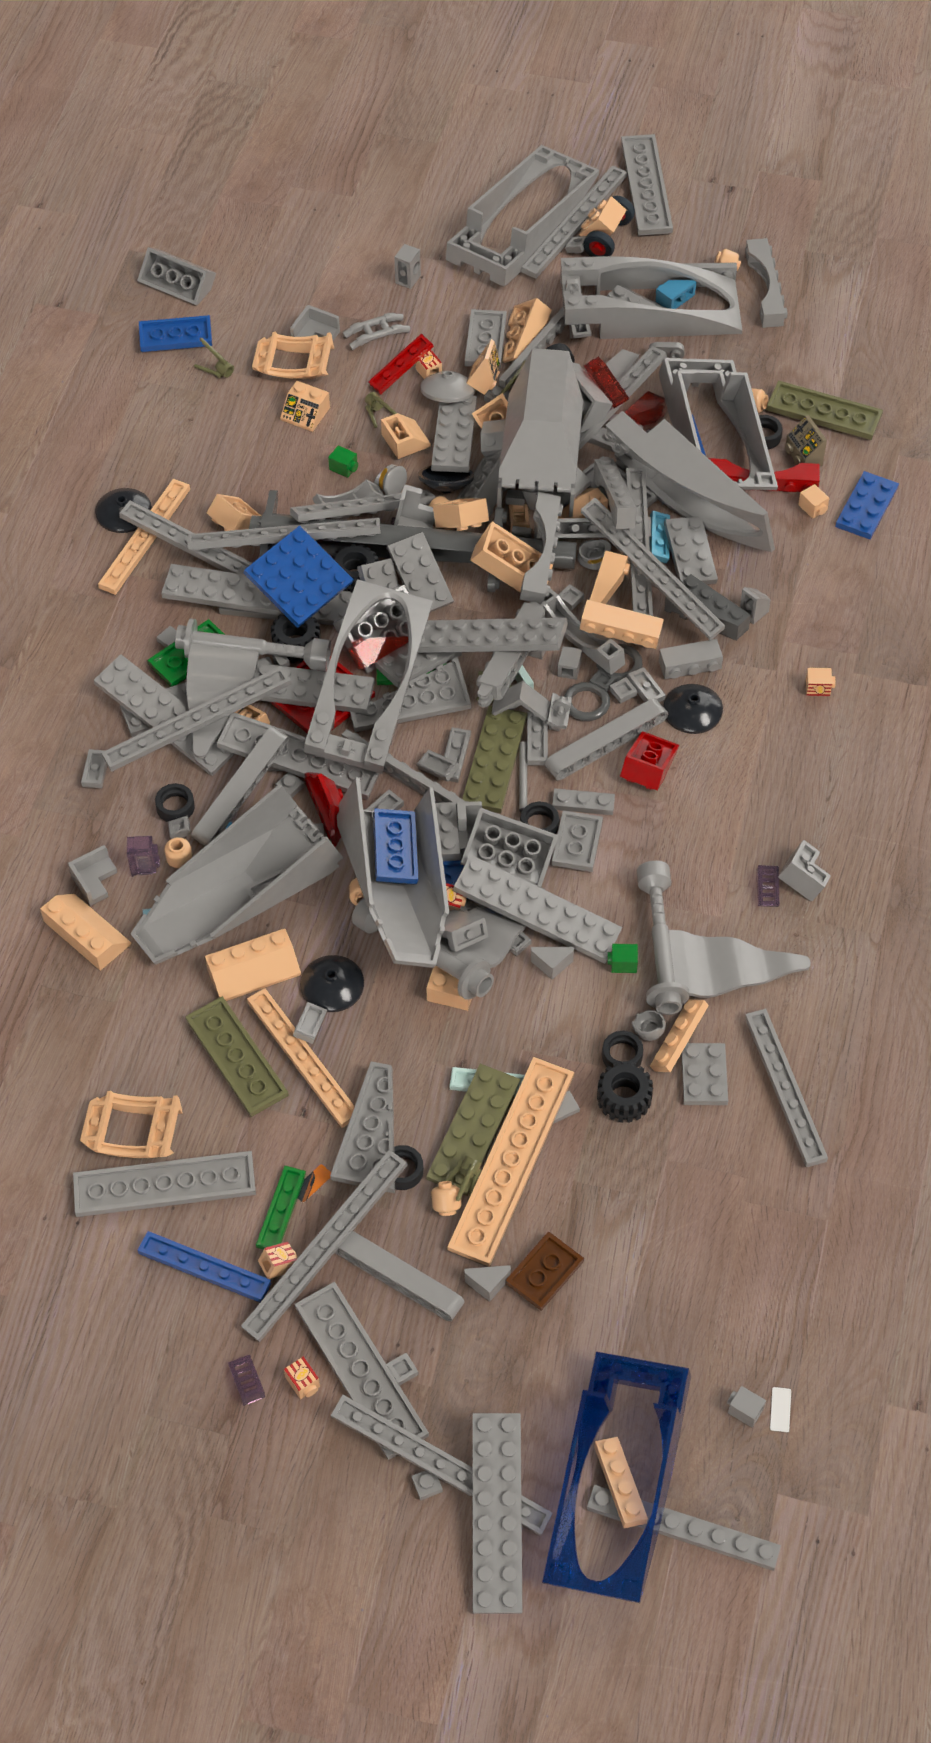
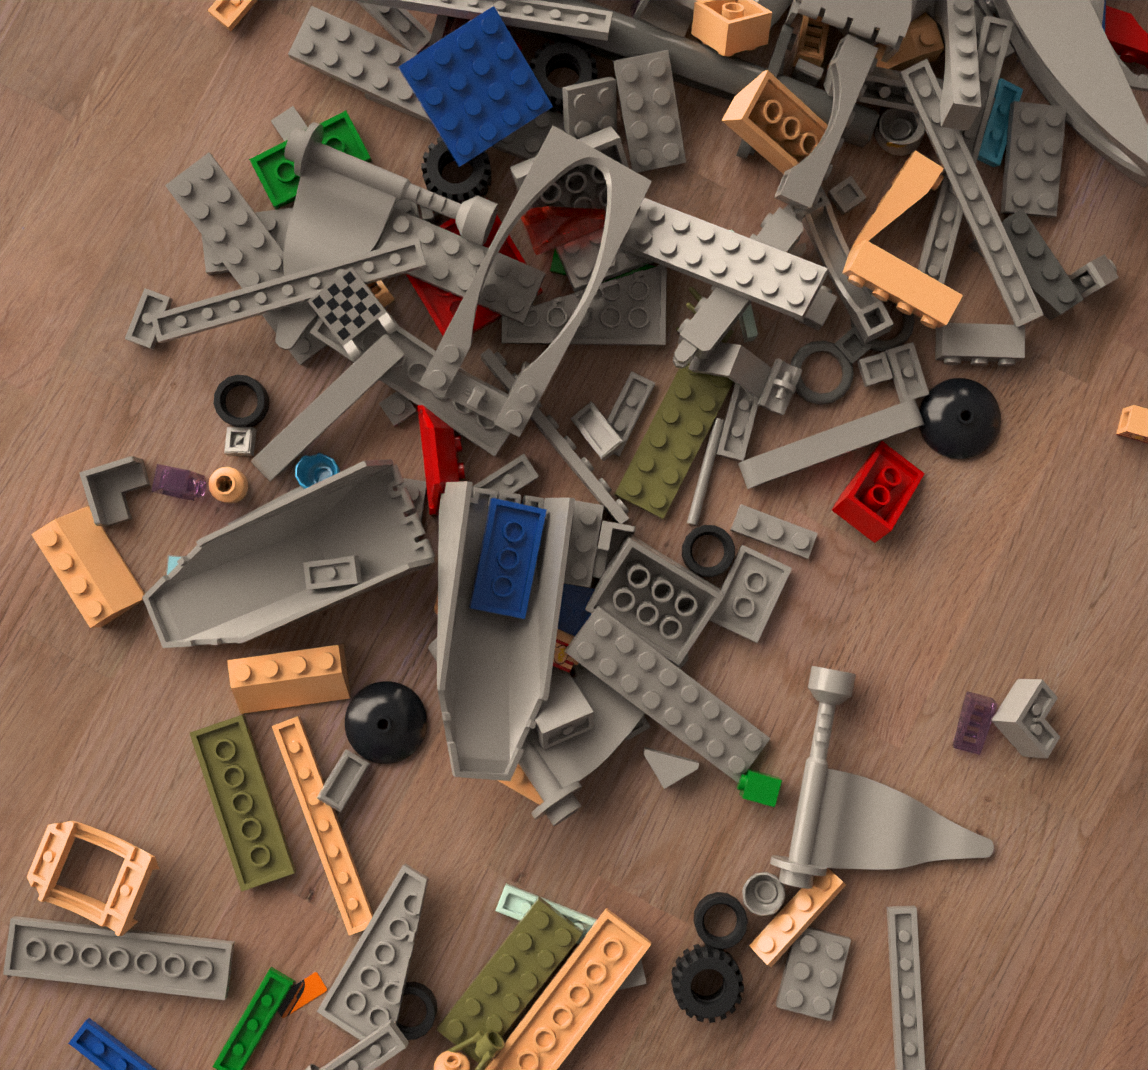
camera: 10 degrees right, 30 degrees up
(243, 717) = (349, 308): none -> light grey flag

